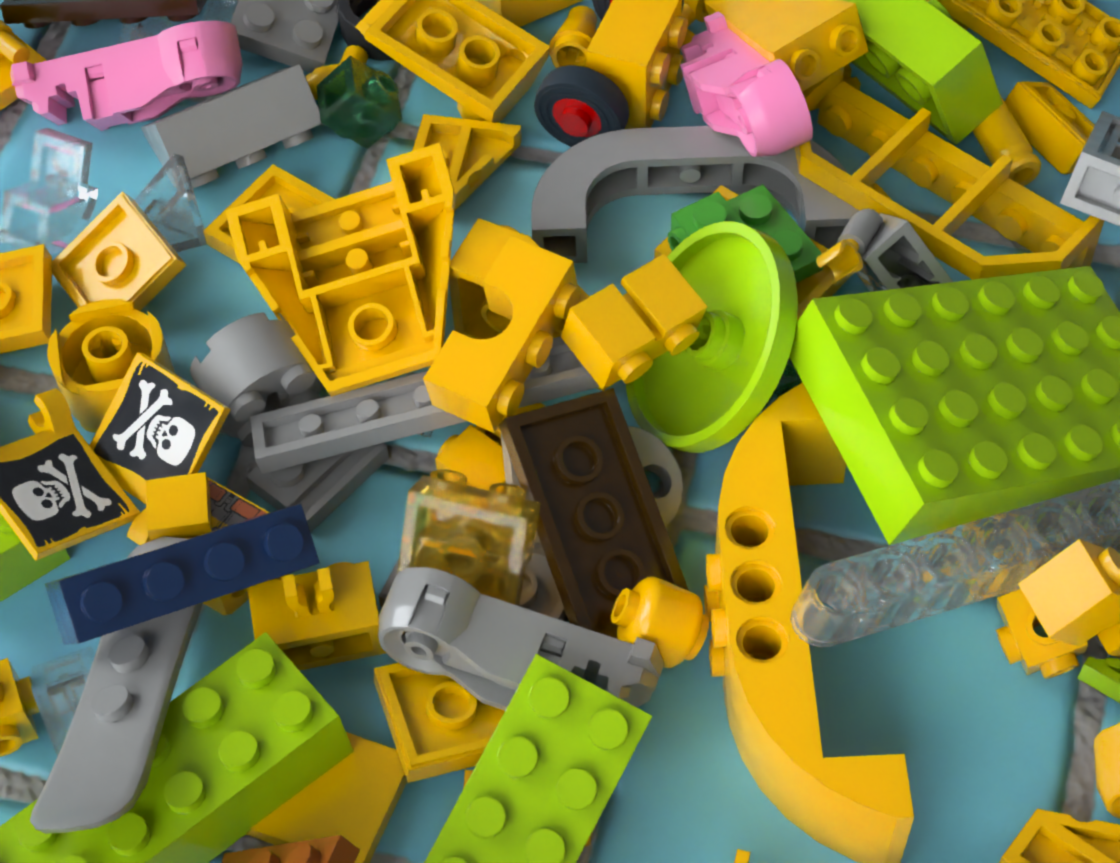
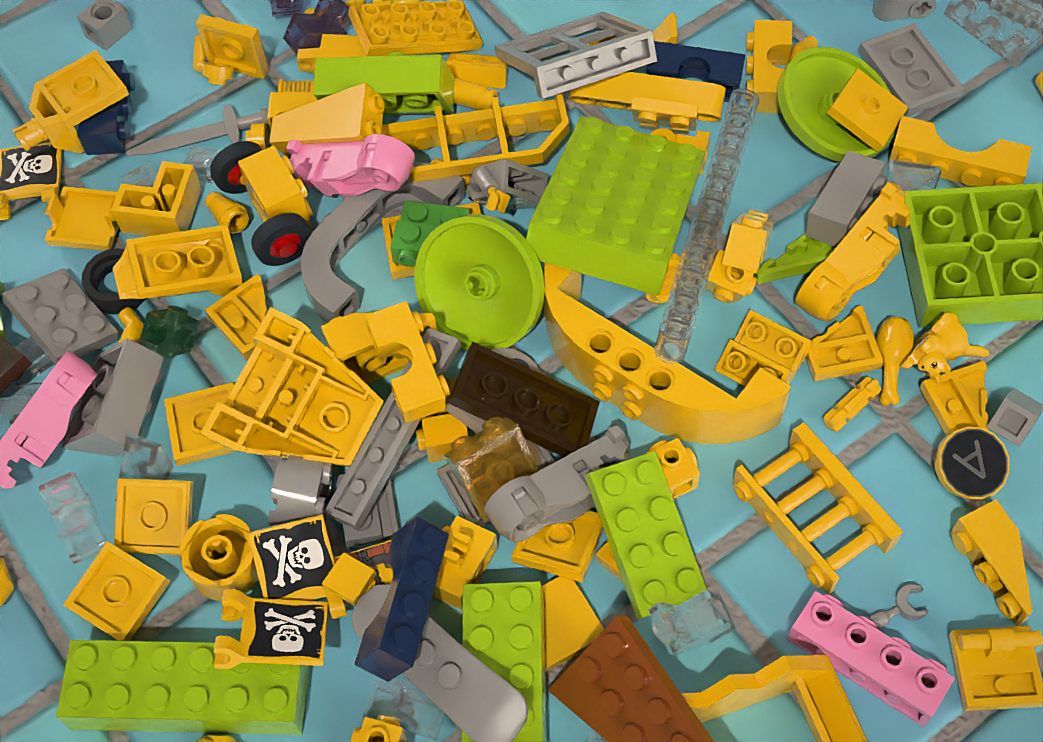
camera: 50 degrees left, 5 degrees up
(624, 333) = (454, 304): yellow piece -> none
(663, 616) = (598, 414): yellow head -> none
(669, 771) = (678, 466): none -> yellow brick
(970, 767) = (763, 345): none -> yellow slope

